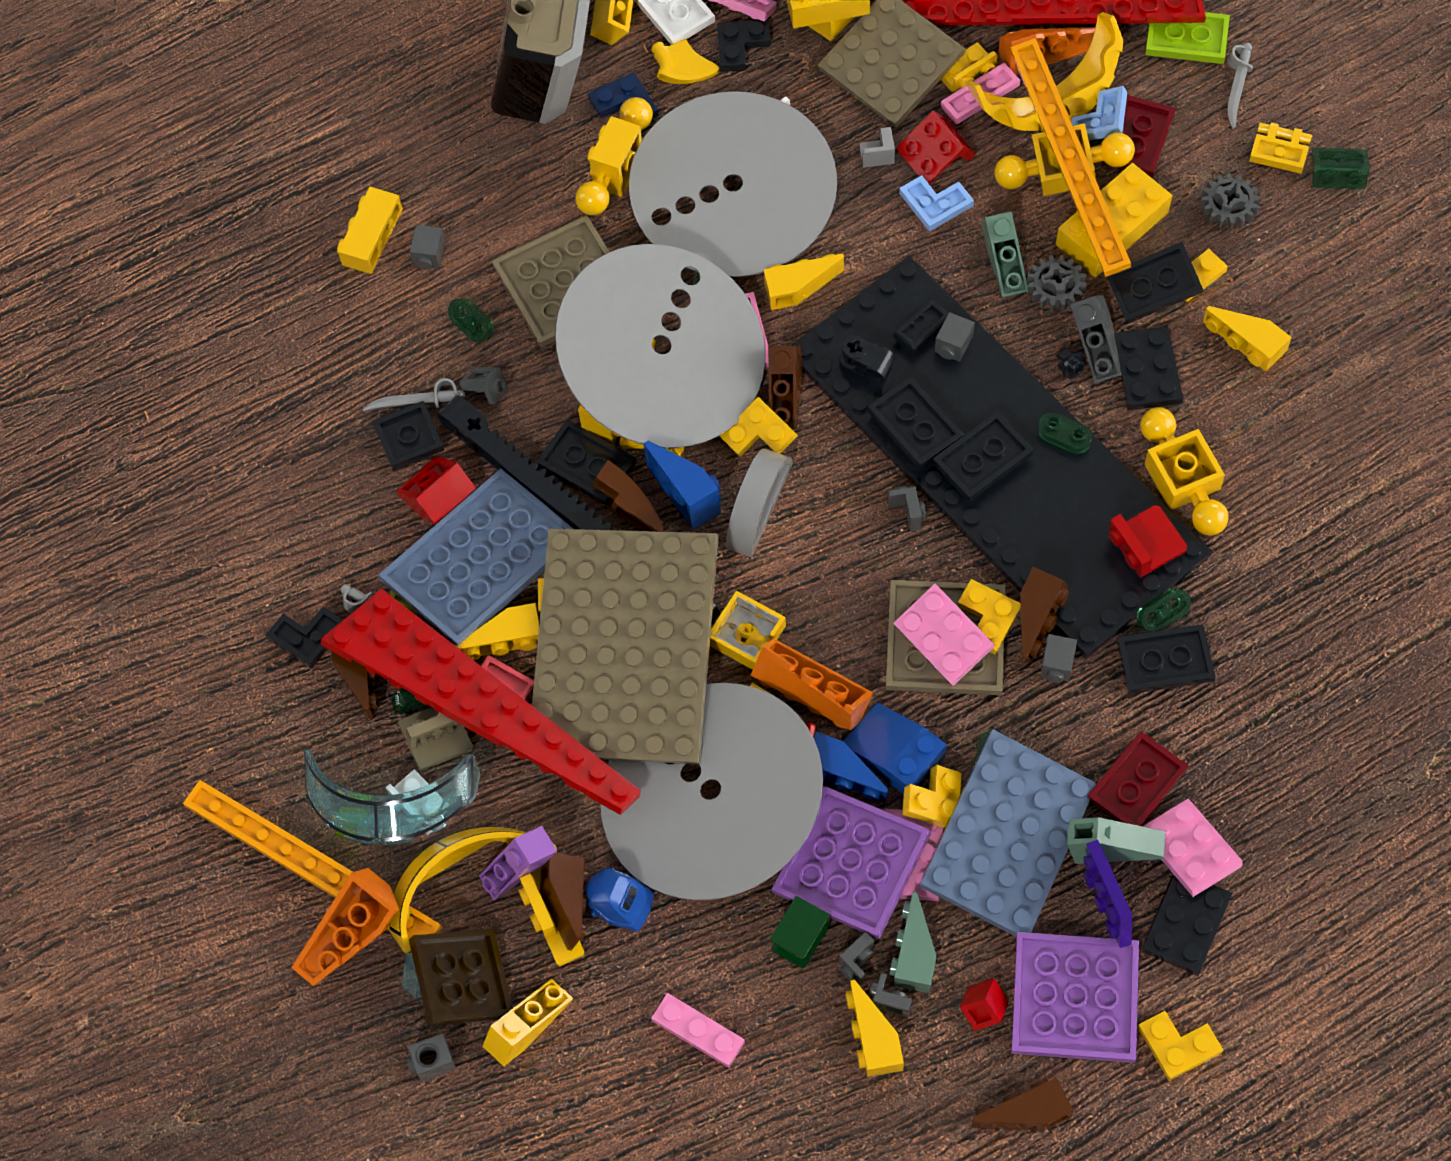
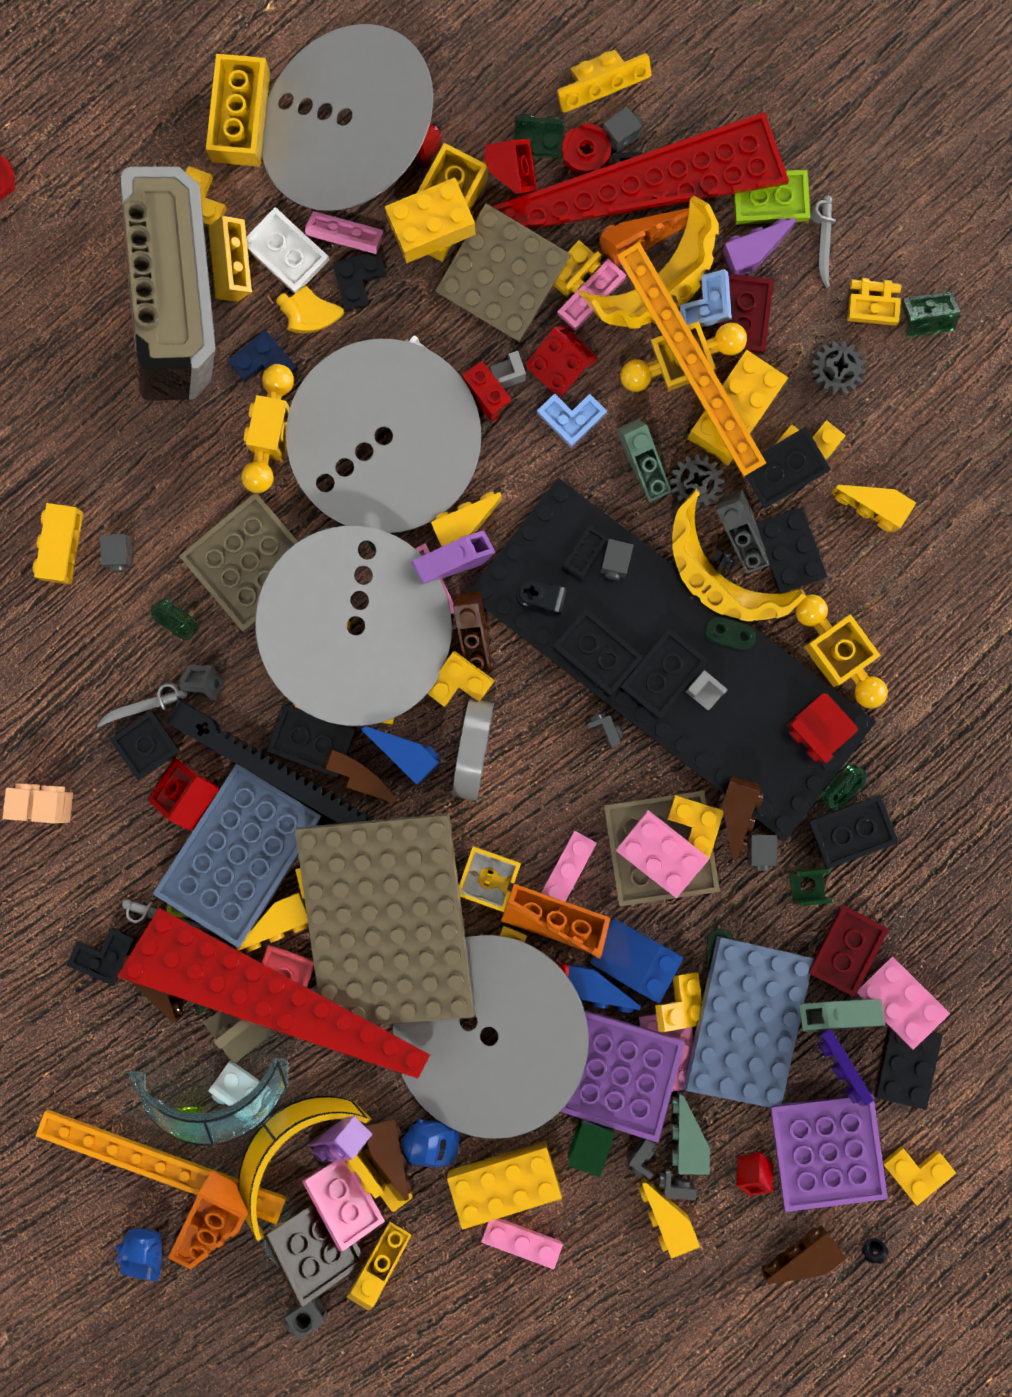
camera: 15 degrees left, 20 degrees up
(262, 953) = (140, 1254): none -> blue helmet
(281, 466) = (44, 805): none -> light nougat piece
(505, 937) = (342, 1203): none -> bright pink plate
(691, 956) = (504, 1185): none -> yellow brick
(786, 304) = (454, 557): none -> medium lavender slope
(841, 637) = (569, 867): none -> bright pink plate
(849, 160) = (486, 390): none -> red bracket
(1025, 480) = (706, 690): none -> light grey panel
(1044, 373) = (712, 587): none -> yellow windscreen
(1109, 689) = (817, 895): none -> dark green piece
(1111, 1119) = (875, 1245): none -> black plate
(1162, 77) = (748, 252): none -> medium lavender slope

